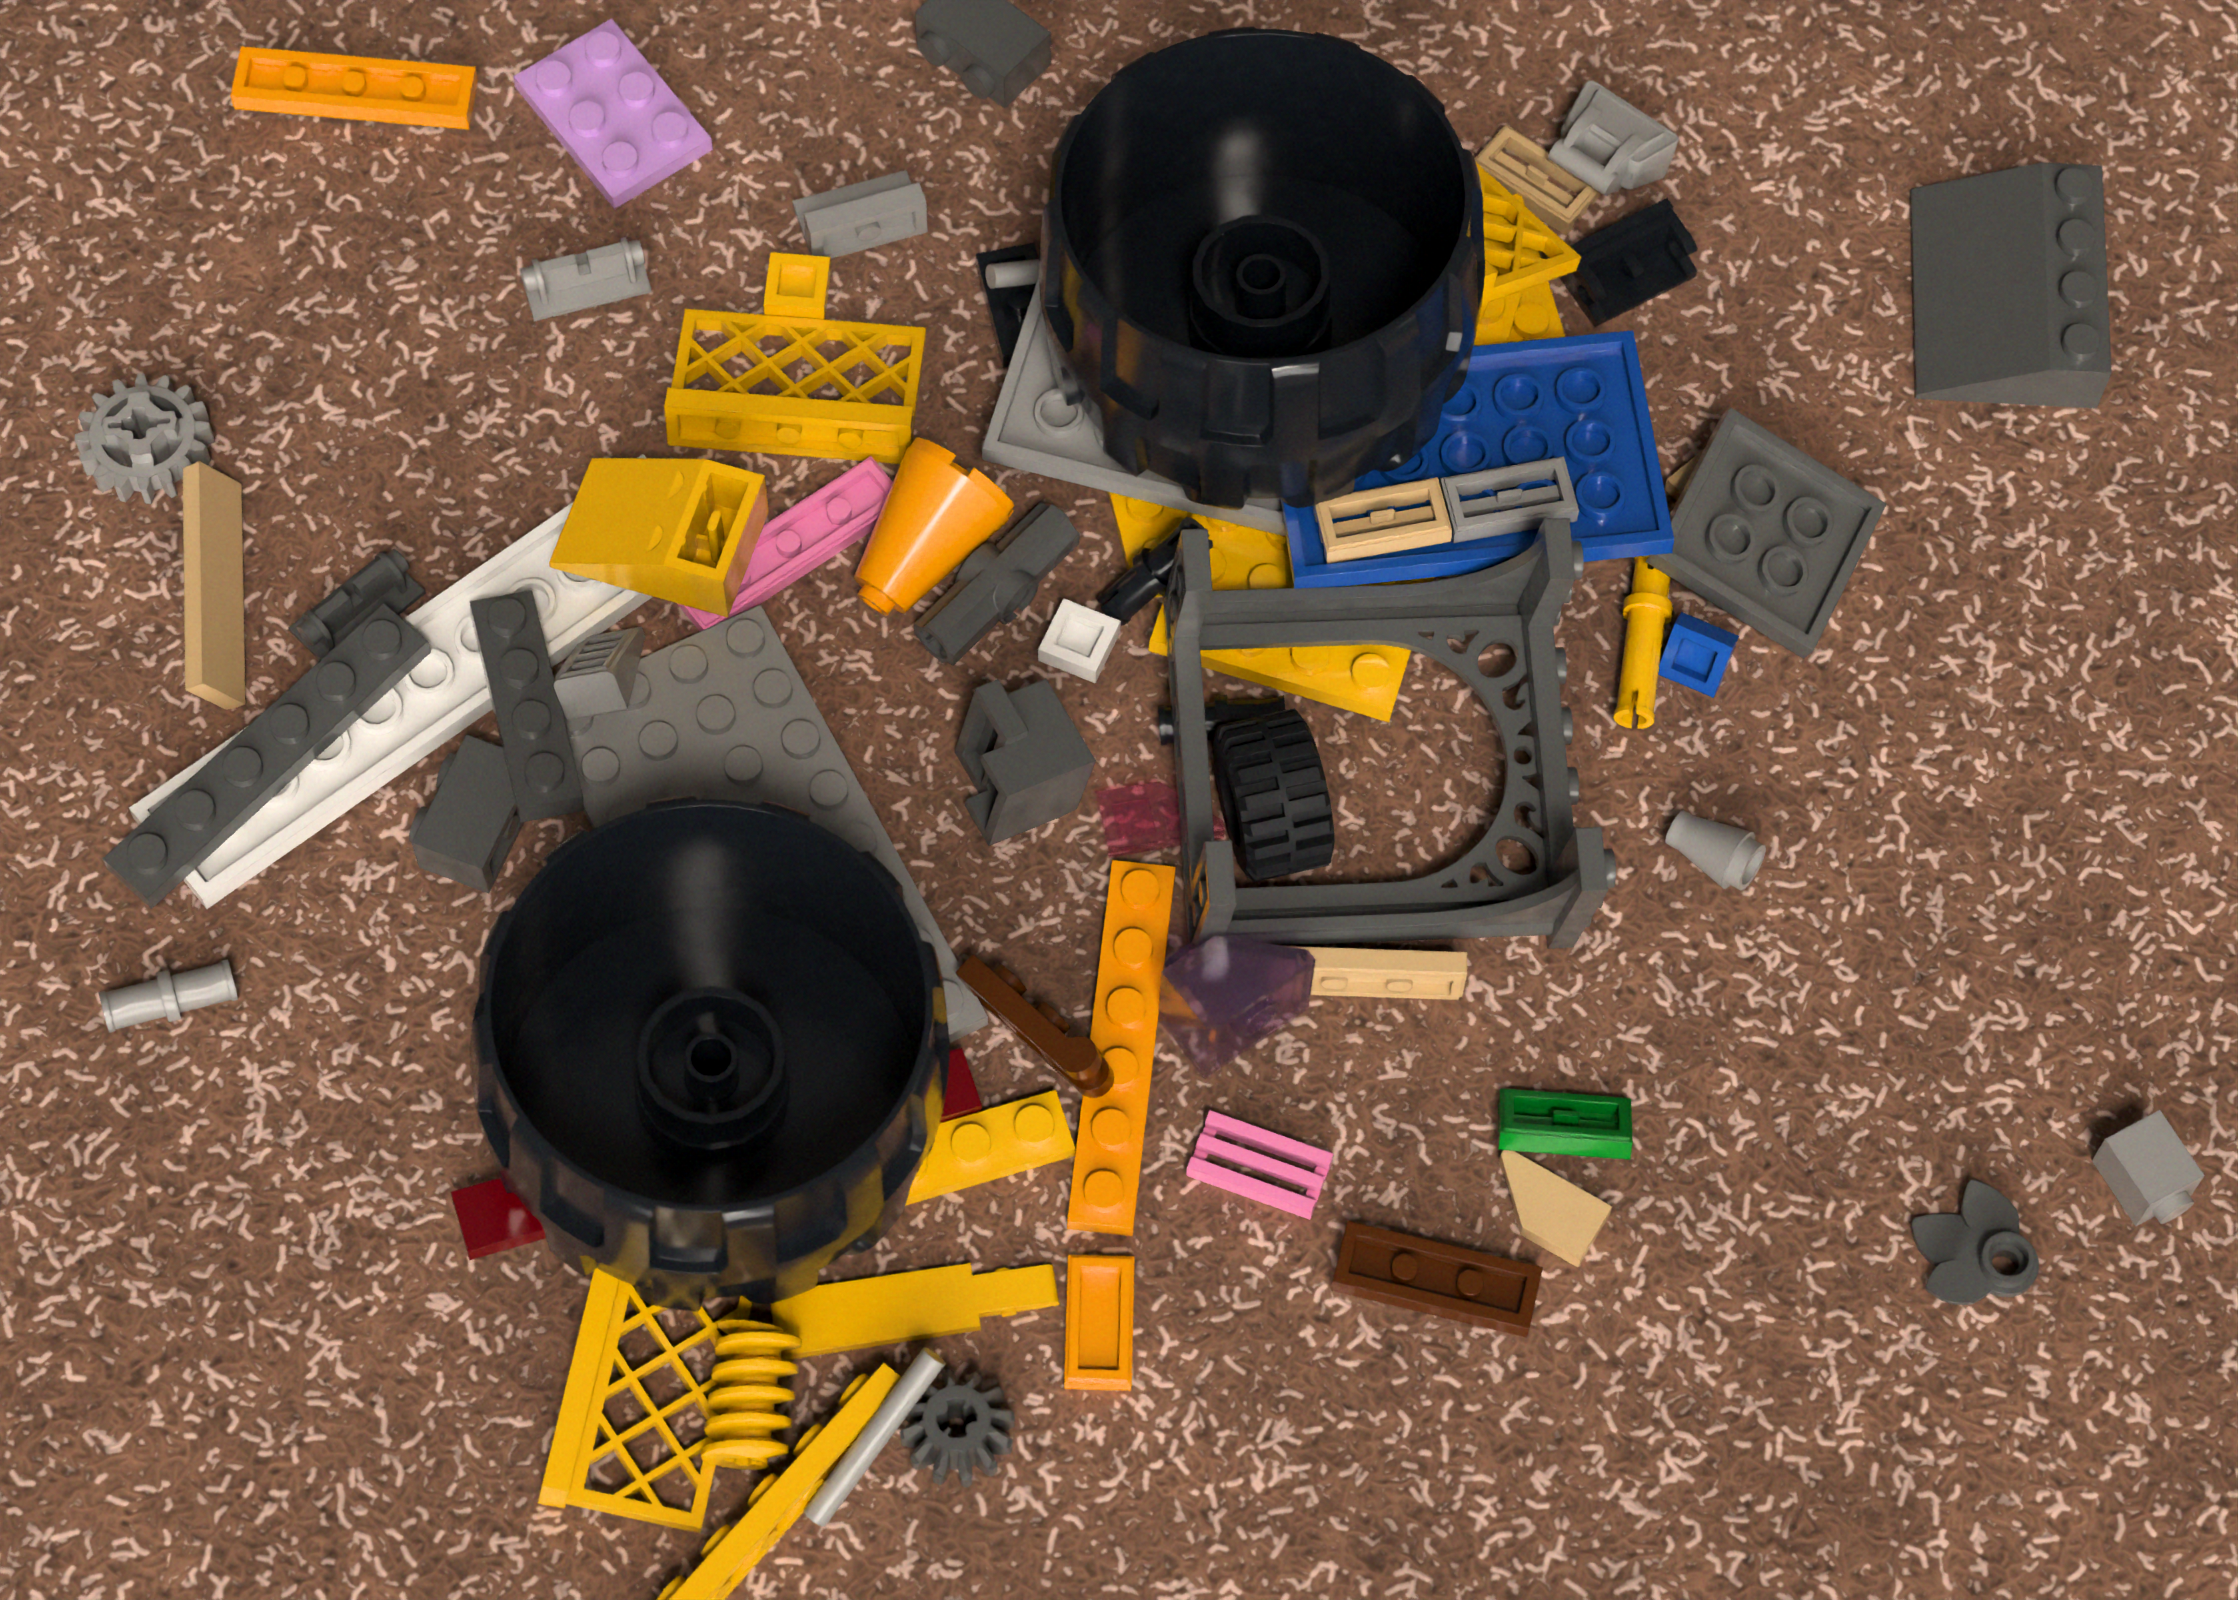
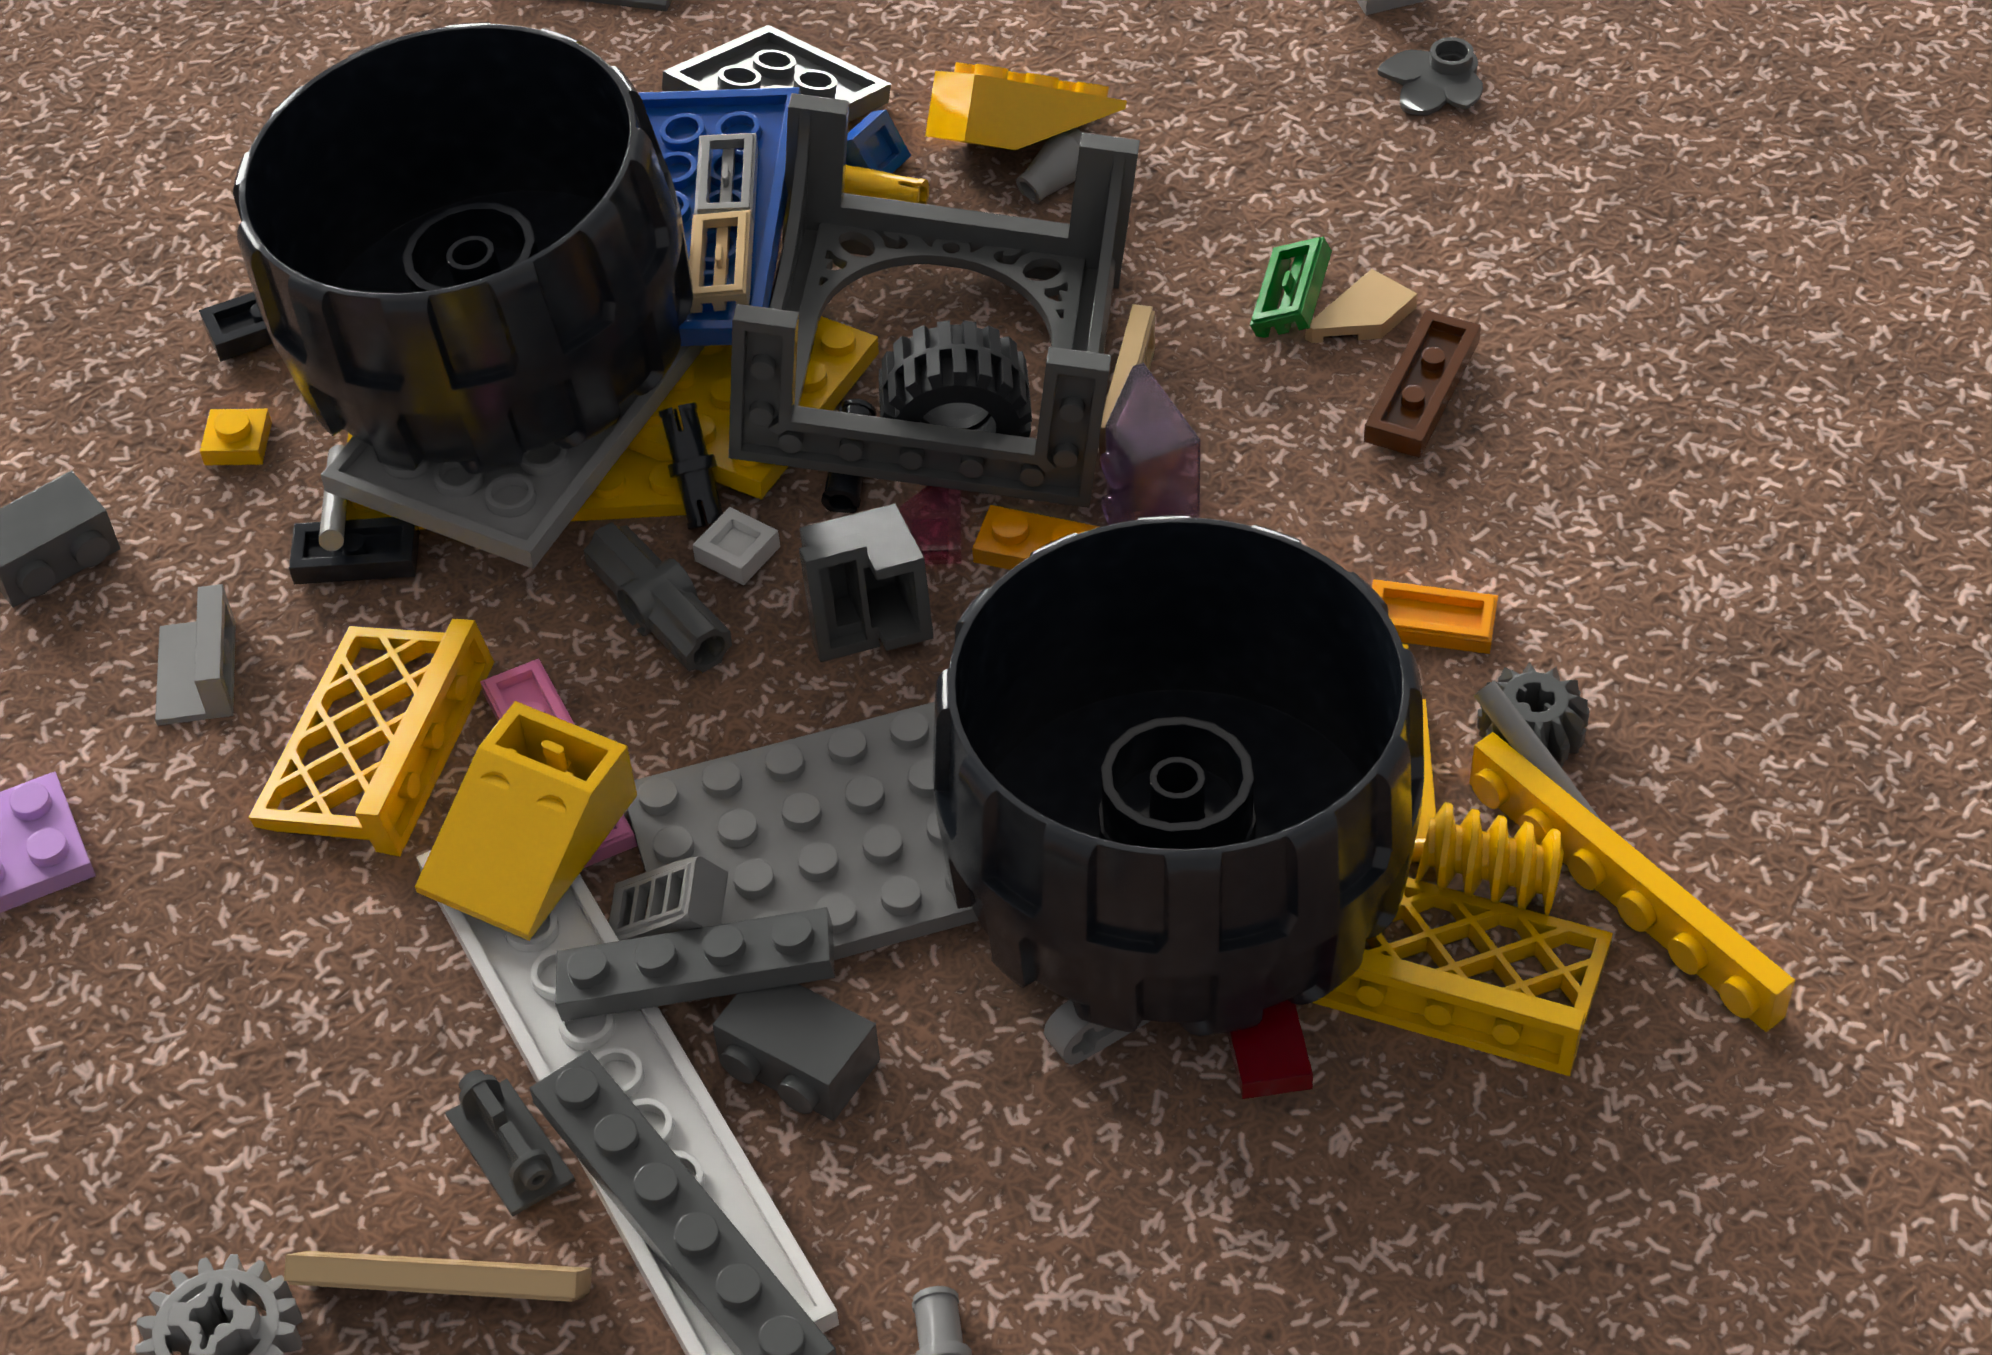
camera: 75 degrees left, 15 degrees down
(585, 279) = (177, 896): light grey hinge -> none
(797, 285) = (262, 717): yellow plate -> none
(927, 527) = (582, 626): light orange cone -> none
(1270, 1142) = (1313, 457): bright pink tile -> none
(1770, 788) = (1011, 108): none -> yellow slope

